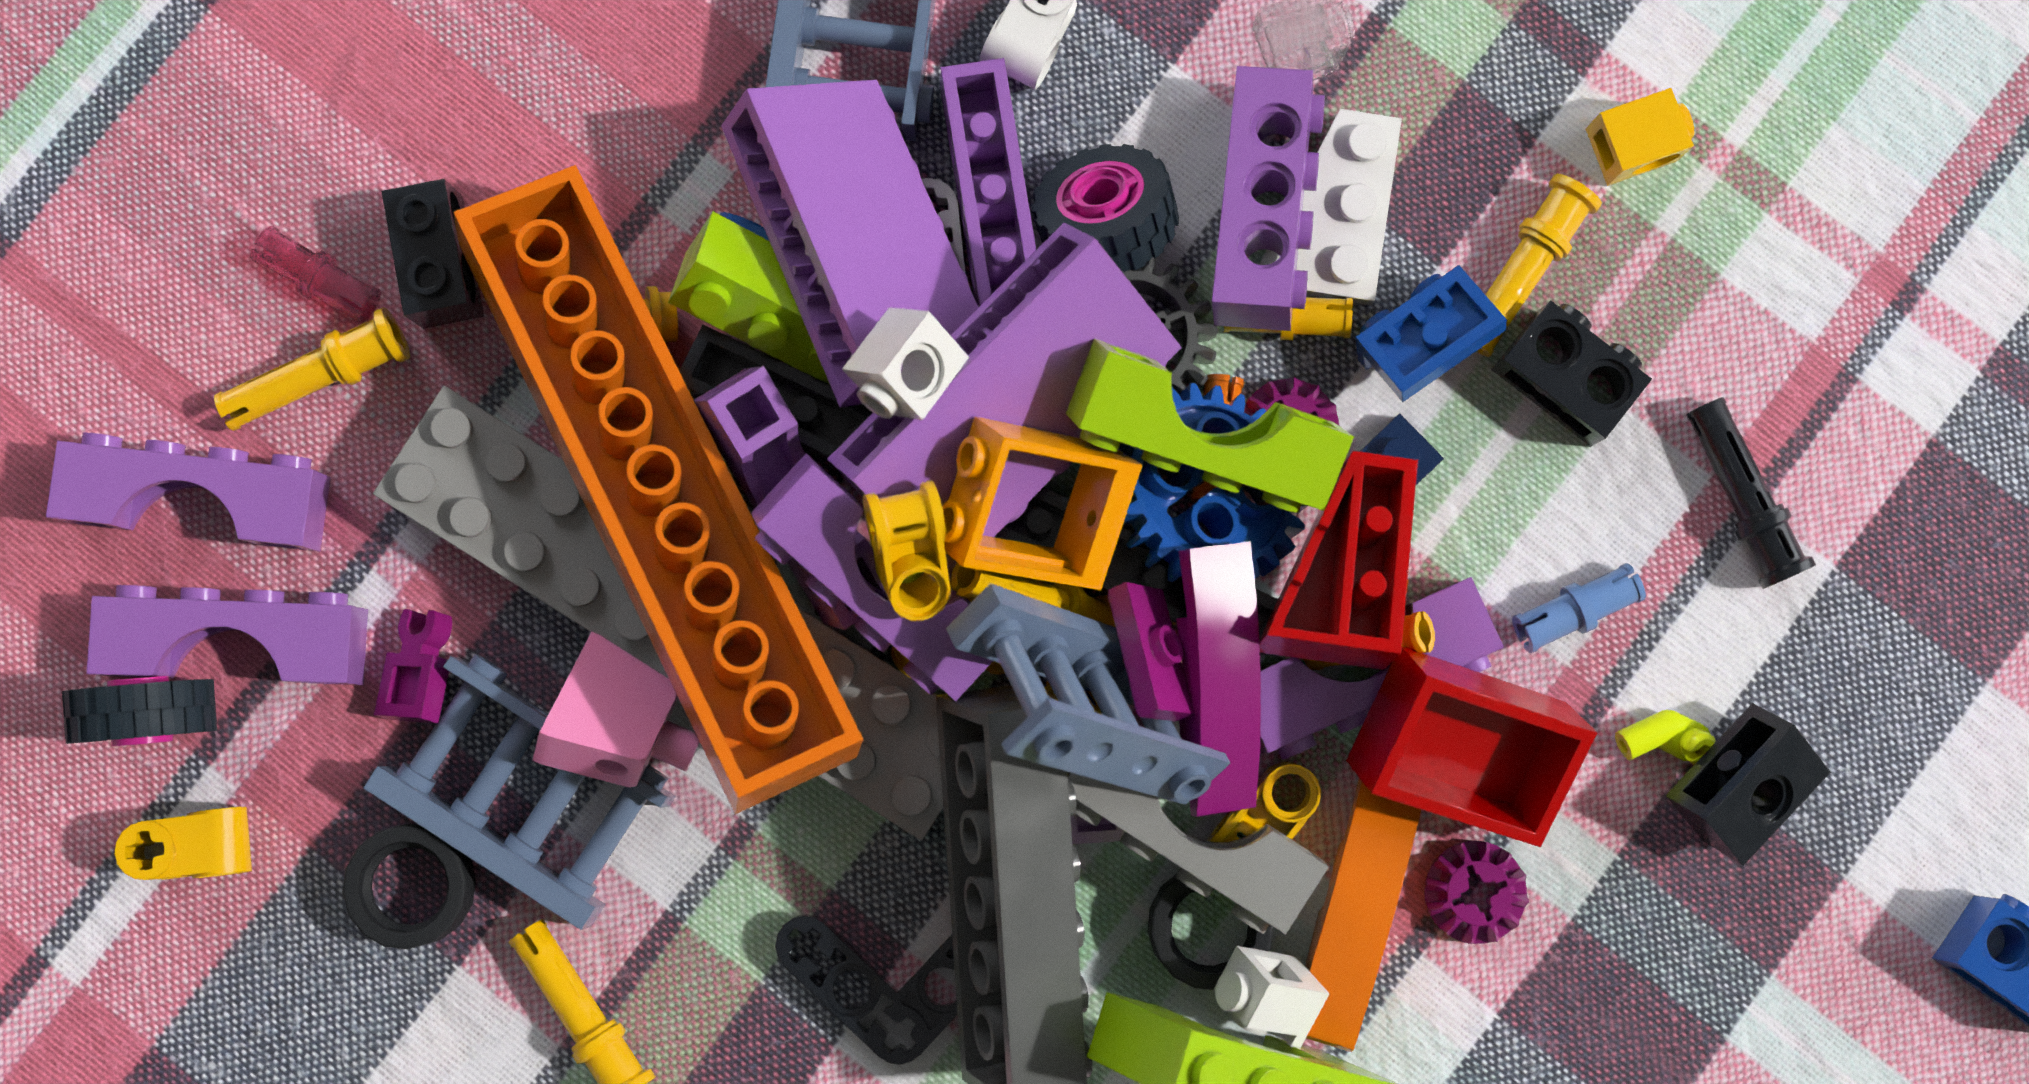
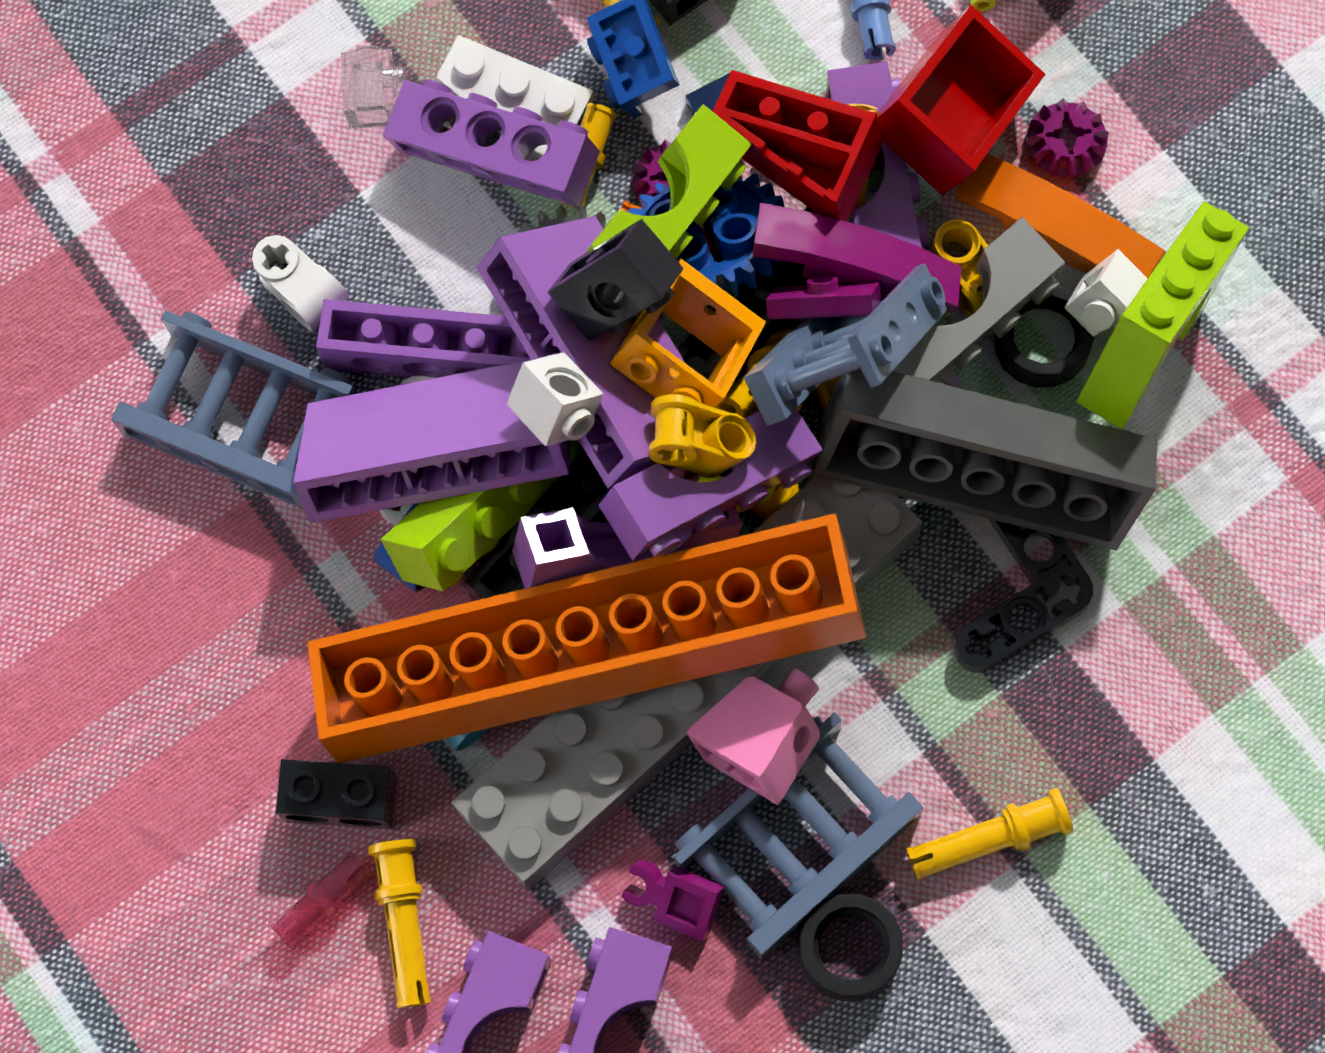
camera: 65 degrees left, 10 degrees down
(1067, 395) = (617, 281): none -> black brick
(1114, 196) = (448, 255): black wheel -> none

